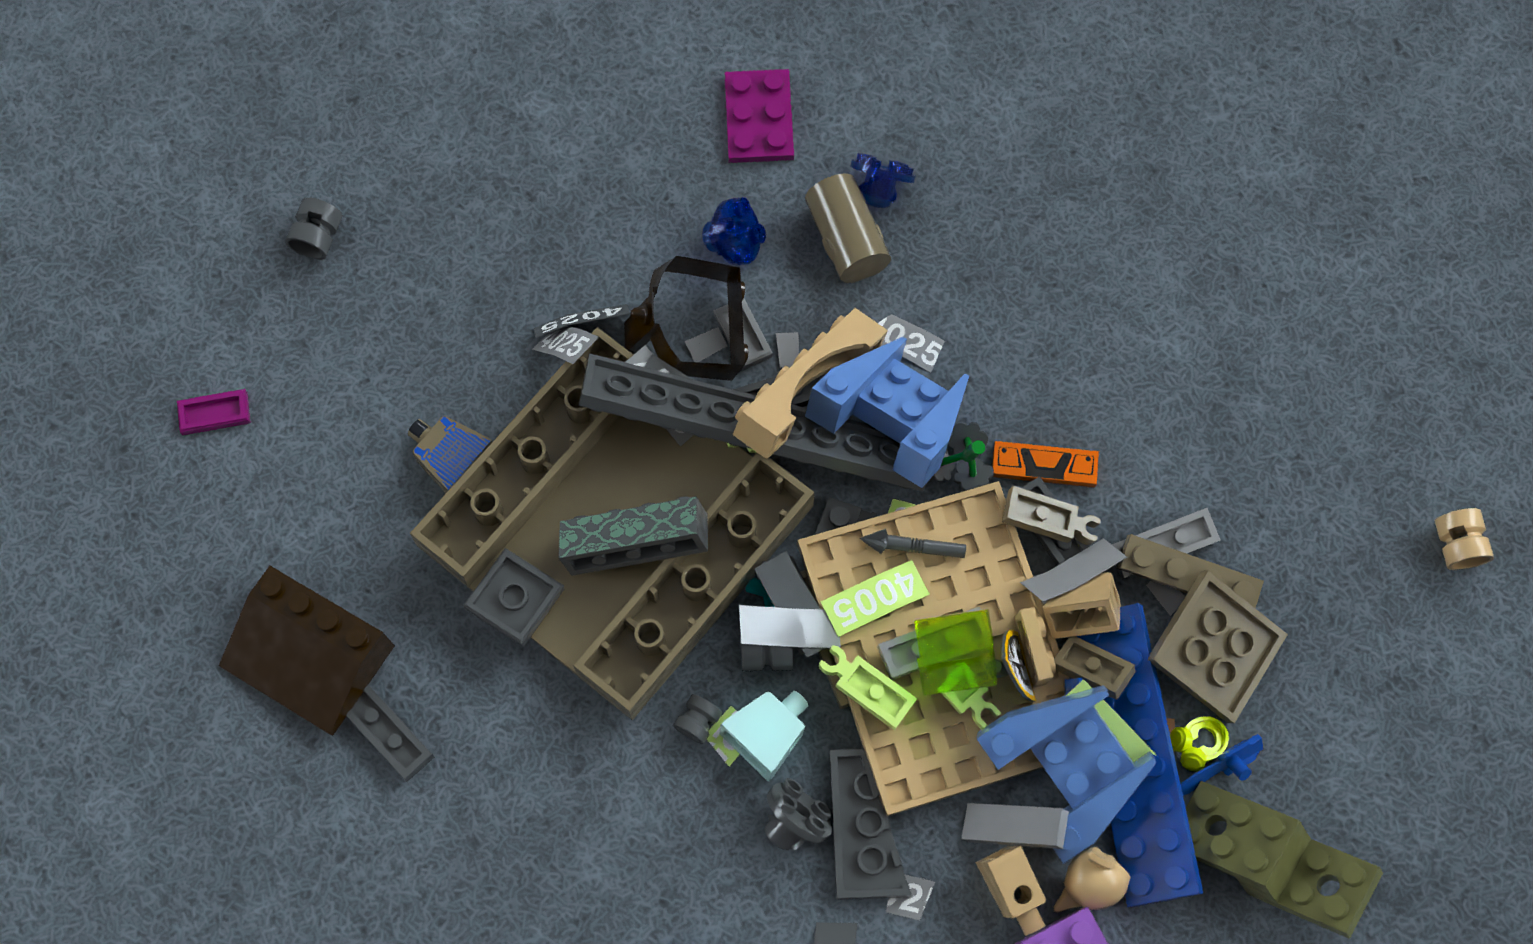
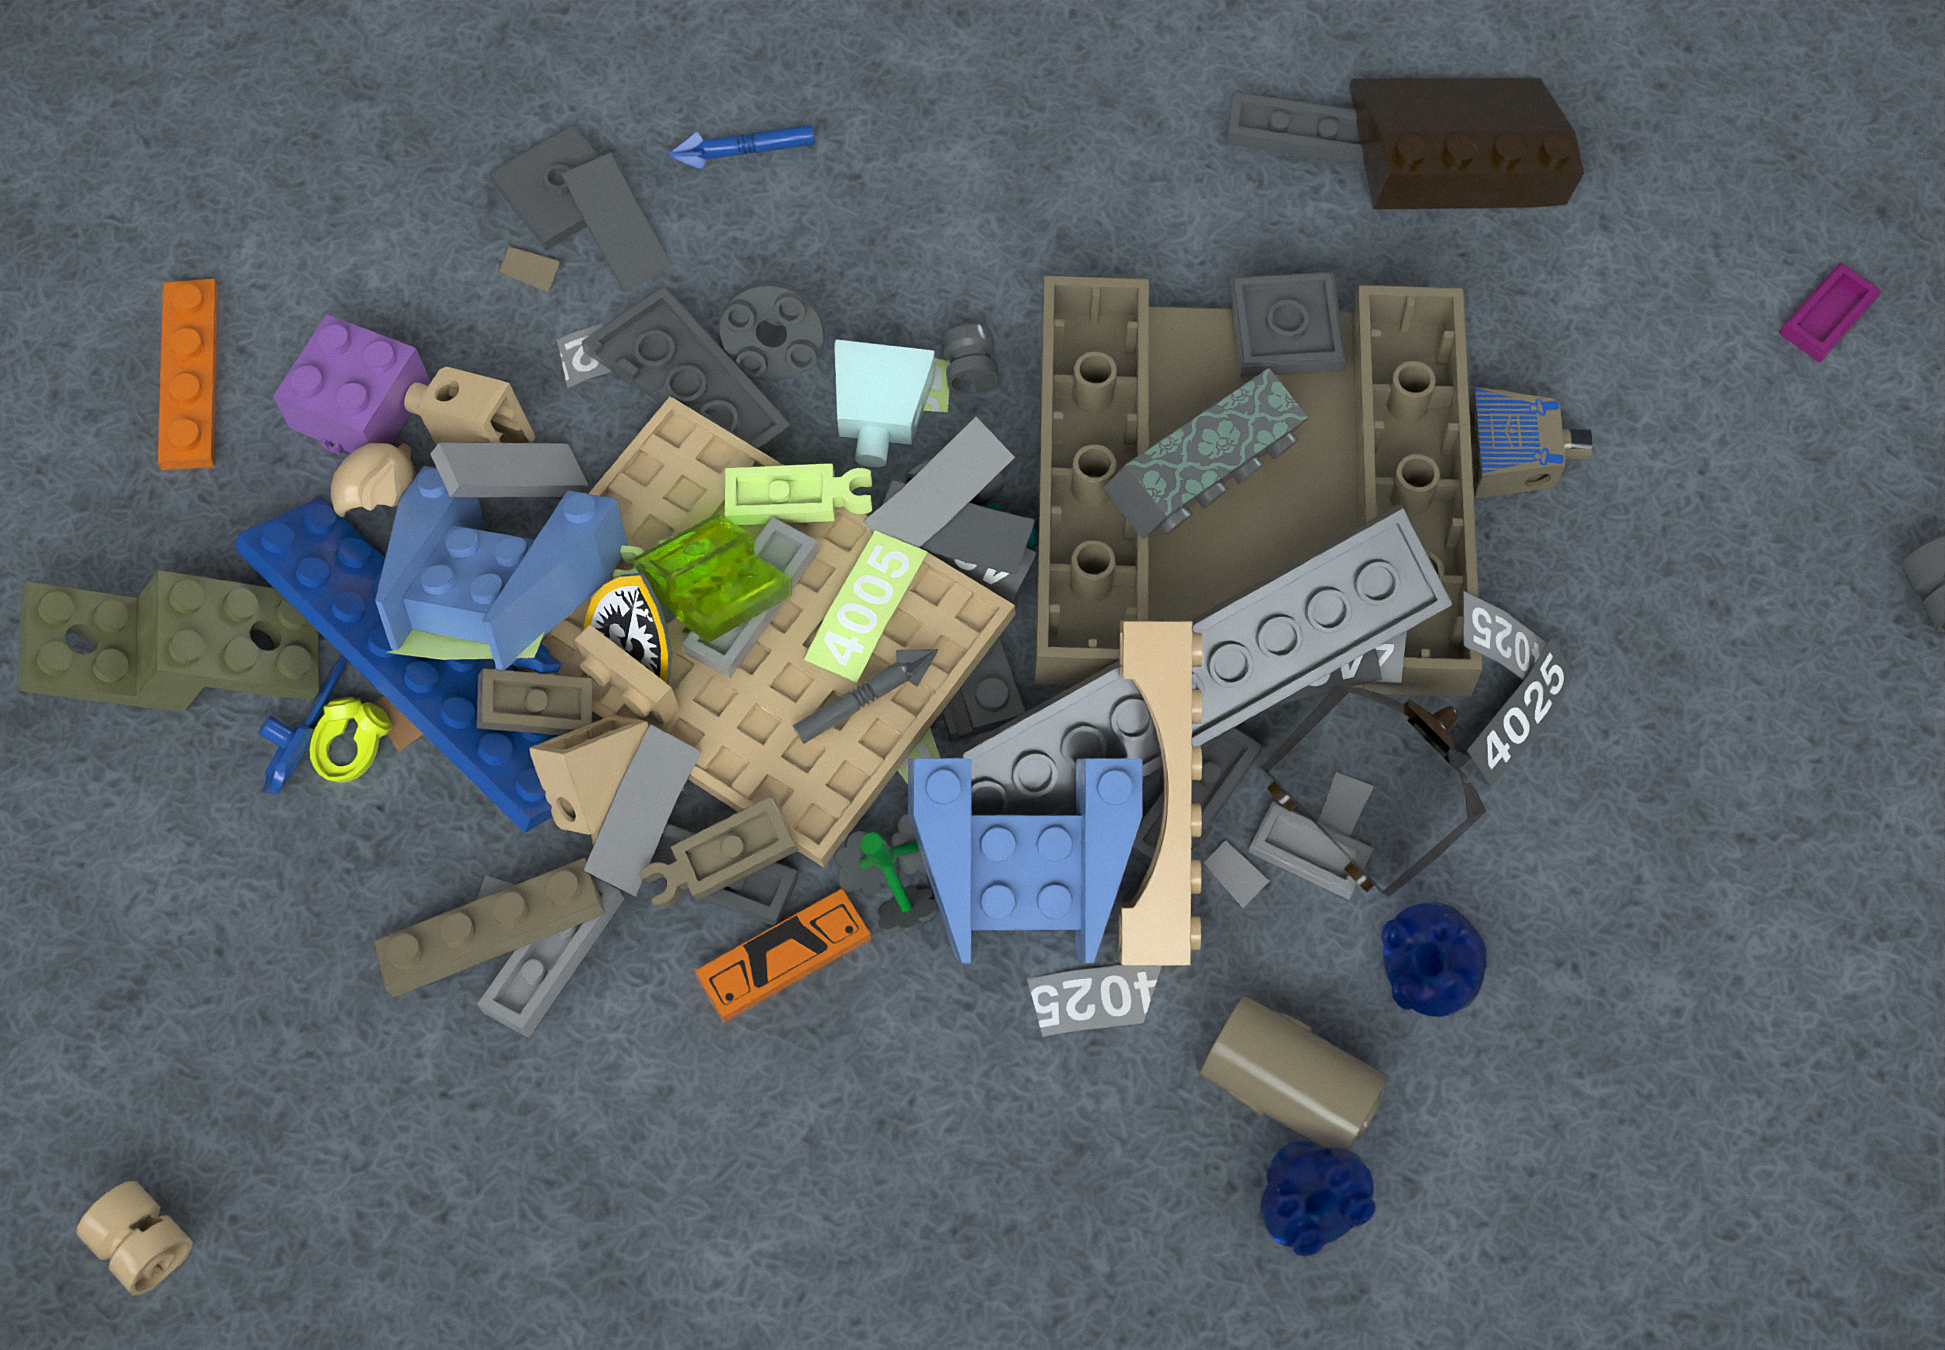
camera: 140 degrees right, 5 degrees down
(759, 116) = (1563, 1181): magenta plate -> none
(1217, 647) = (393, 849): dark tan plate -> none

